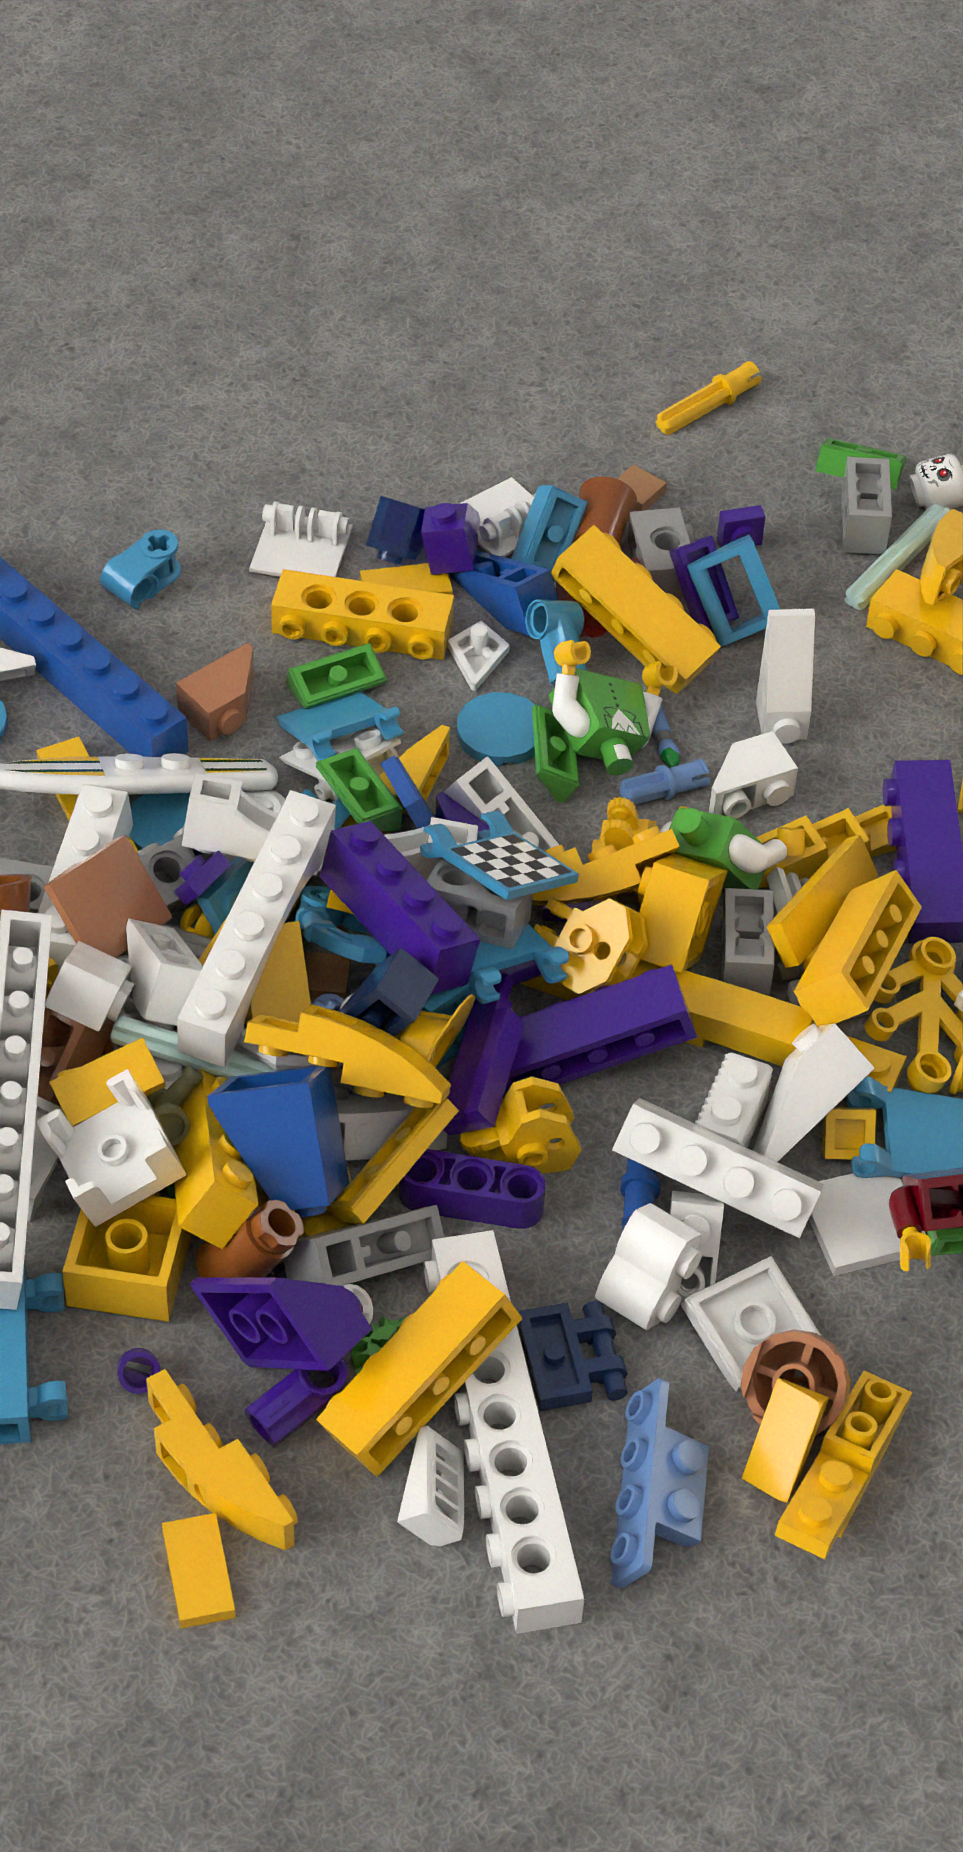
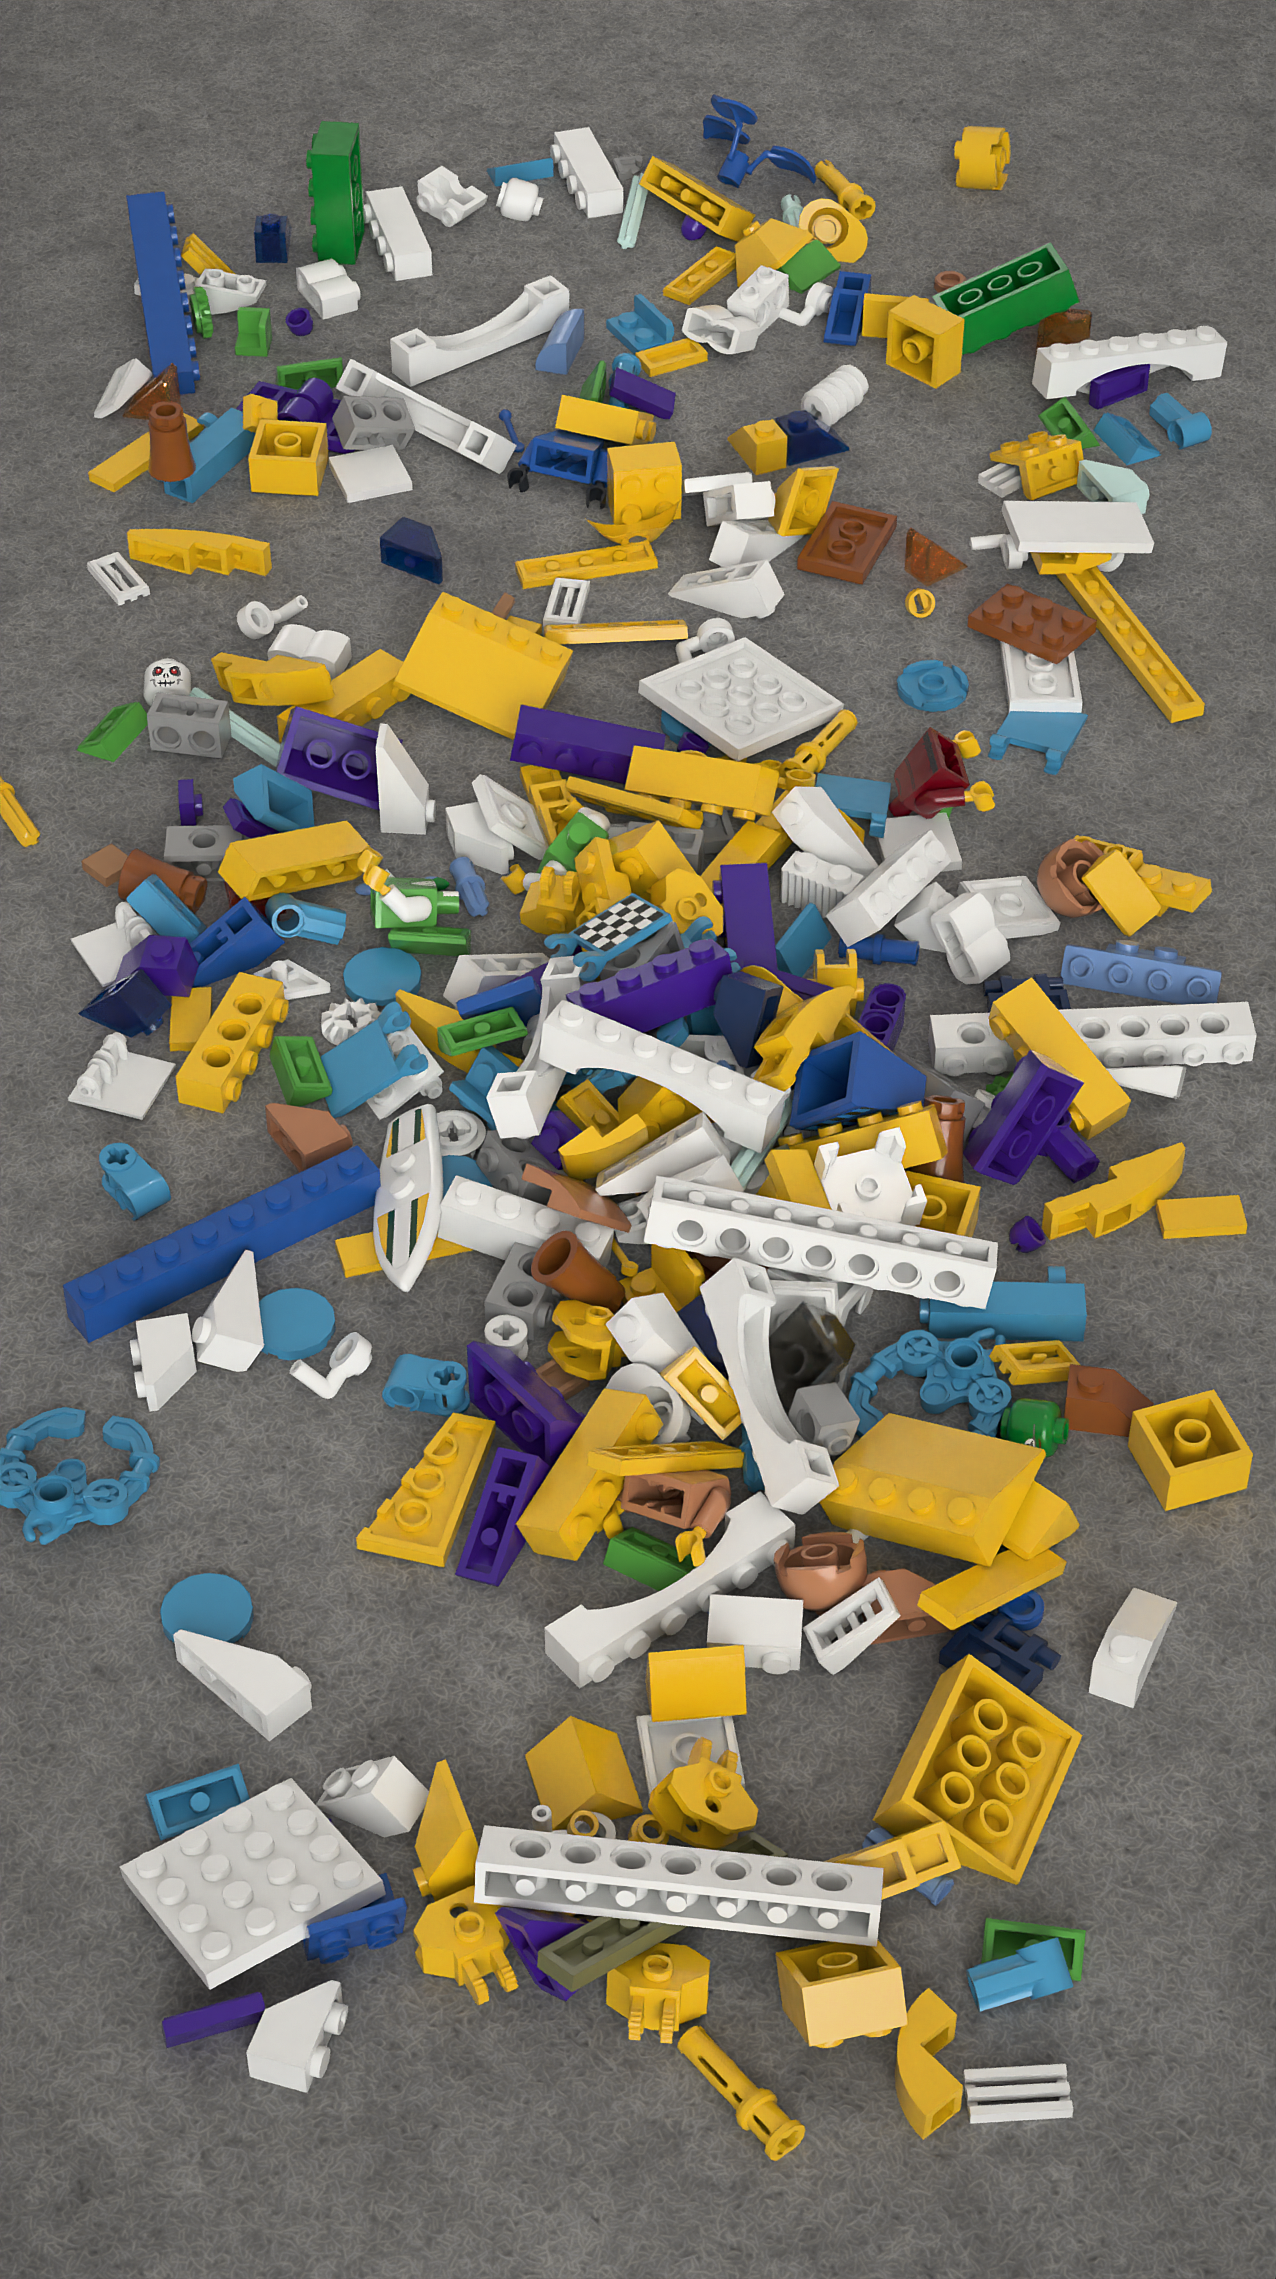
camera: 80 degrees left, 5 degrees down
(174, 906) = (591, 1153): none -> yellow slope
(415, 724) = (335, 1024): none -> white gear
(609, 1095) = (798, 944): none -> dark azure slope
(776, 787) = (510, 817): none -> white tile
(850, 622) = (330, 757): none -> dark purple slope

